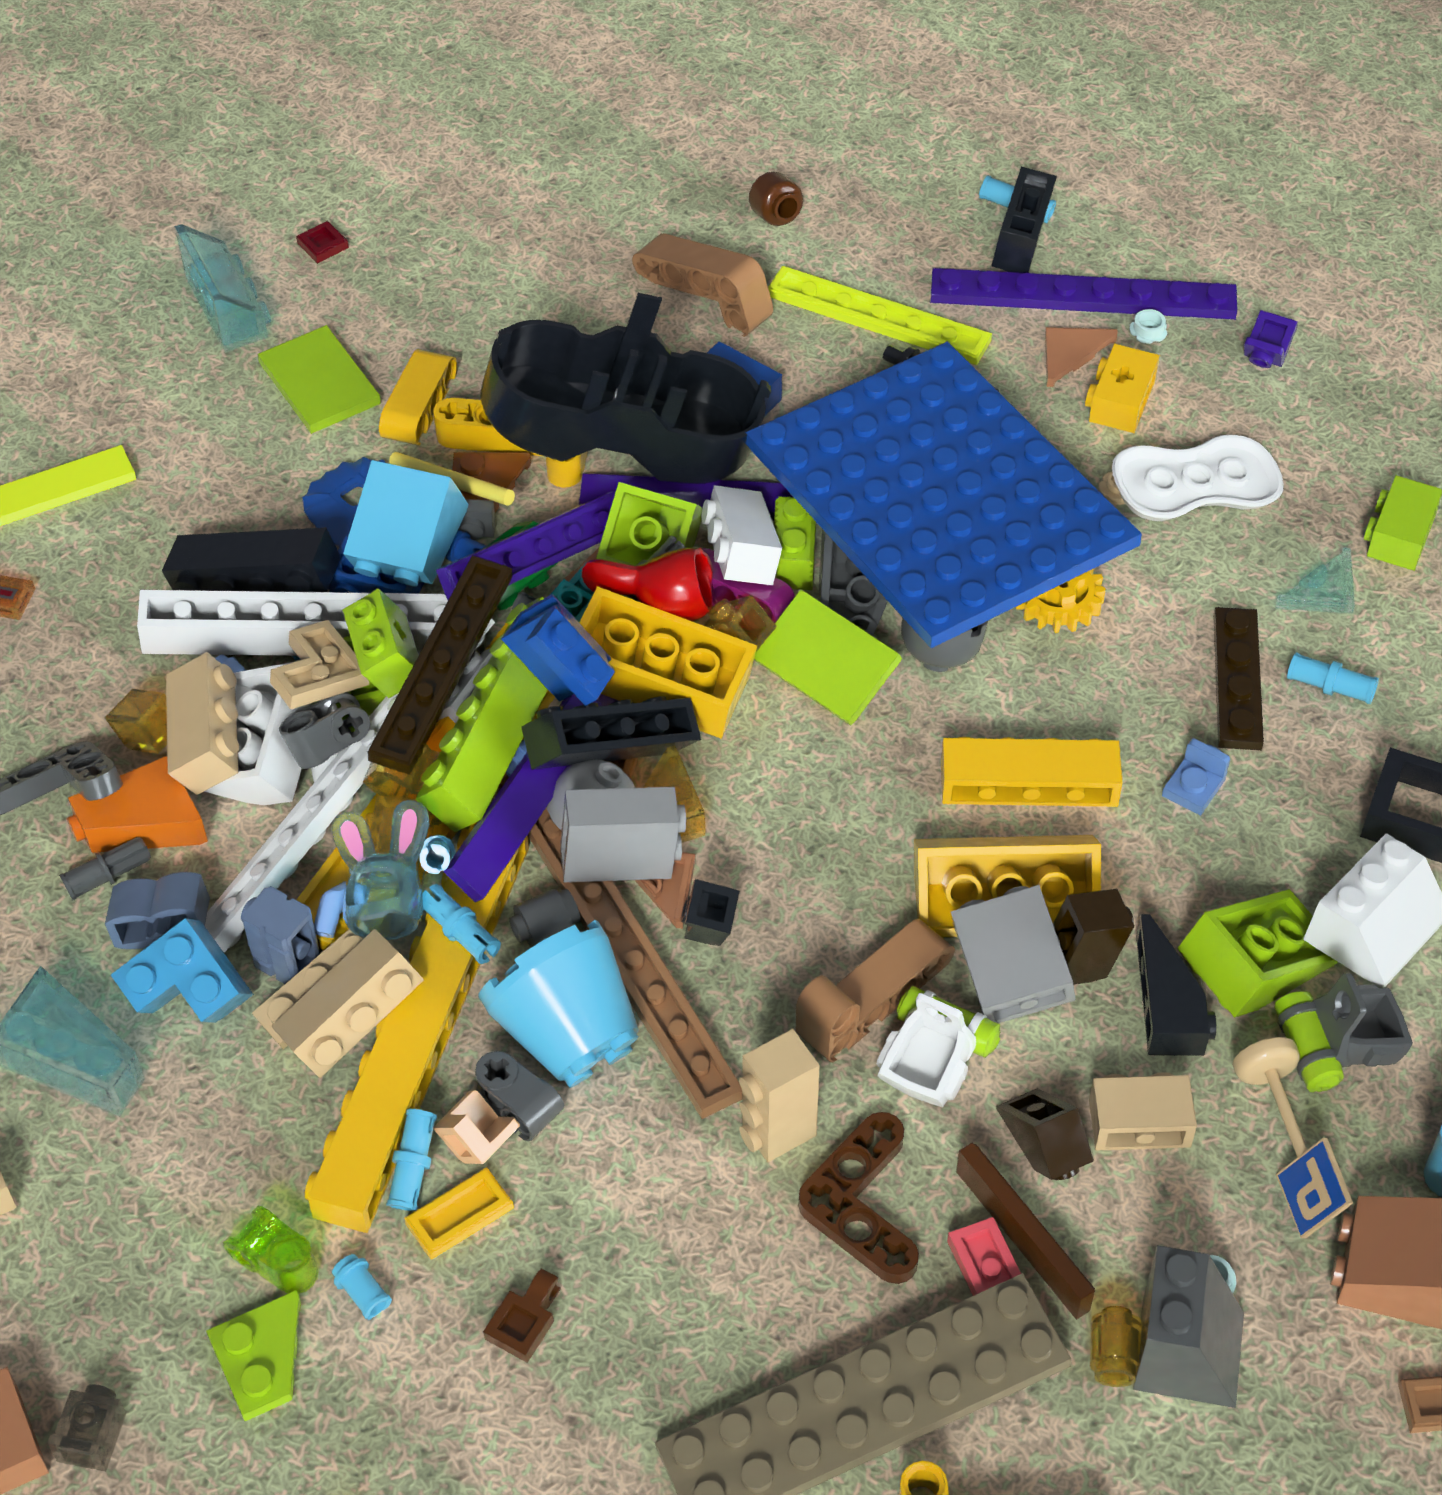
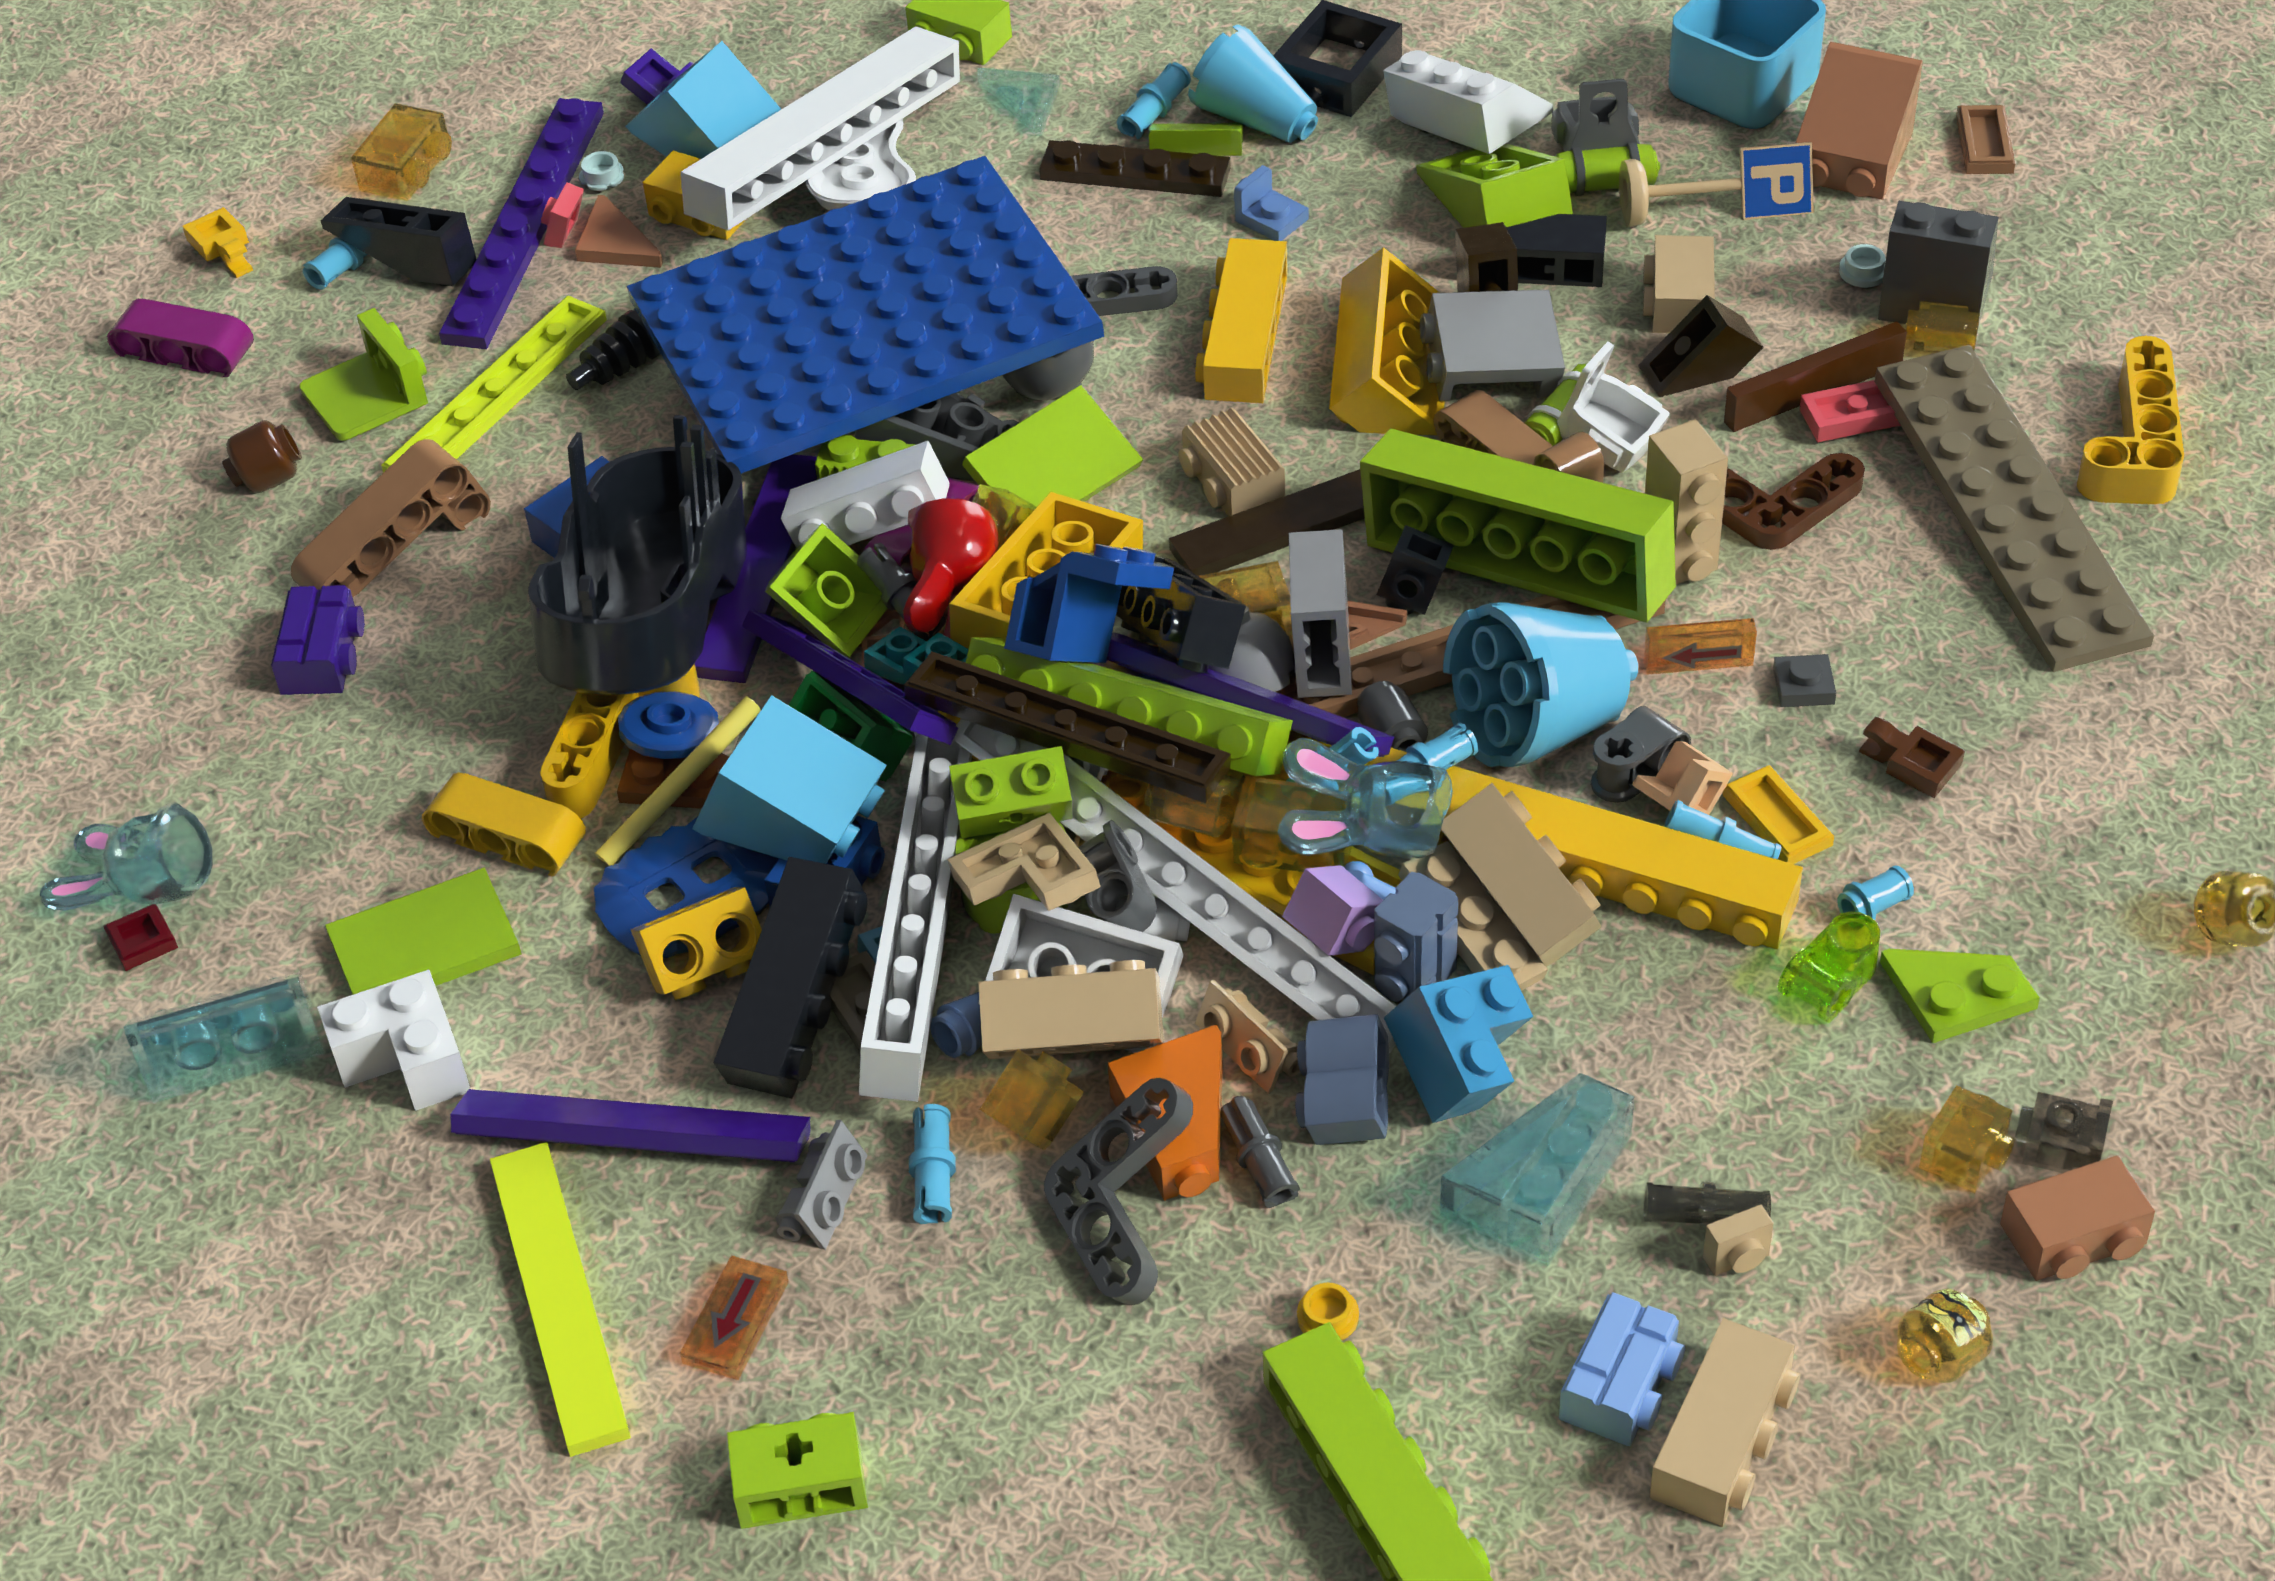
camera: 80 degrees left, 5 degrees down
(35, 1164) = (1699, 1204): none -> clear smoke pin
(84, 1350) = (1967, 1139): none -> clear yellow brick
(87, 622) = (829, 1176): none -> light grey hinge
(103, 678) = (932, 1164): none -> medium azure pin
(145, 510) = (631, 1125): none -> dark purple tile
(218, 382) = (395, 1030): none -> white brick
(228, 840) = (1244, 1036): none -> tan hinge
(293, 502) = (697, 929): none -> yellow brick
(303, 872) = (1333, 910): none -> lavender brick
(371, 217) = (144, 860): none -> clear light blue piece
(508, 465) = (666, 724): none -> blue wheel
(590, 265) = (317, 640): none -> dark purple brick
(623, 1231) = (1804, 680): none -> dark grey plate
(646, 1139) = (1700, 646): none -> clear orange tile
(745, 975) = (1523, 523): none -> lime brick
(806, 853) = (1268, 525): none -> dark brown tile
(842, 780) = (1231, 463): none -> tan brick
(866, 240) = (371, 385): none -> lime bracket
(901, 131) = (181, 336): none -> magenta beam
(1020, 126) = (220, 236): none -> yellow plate
(1063, 661) = (1120, 281): none -> dark grey beam
(1080, 309) = (561, 215): none -> coral plate
(1139, 204) = (401, 152): none -> clear yellow brick
(1202, 376) = (704, 107): none -> medium azure slope
(1206, 441) = (819, 128): none -> white brick
(1293, 716) = (1197, 138): none -> lime slope
(1351, 740) = (1252, 88): none -> medium azure cone

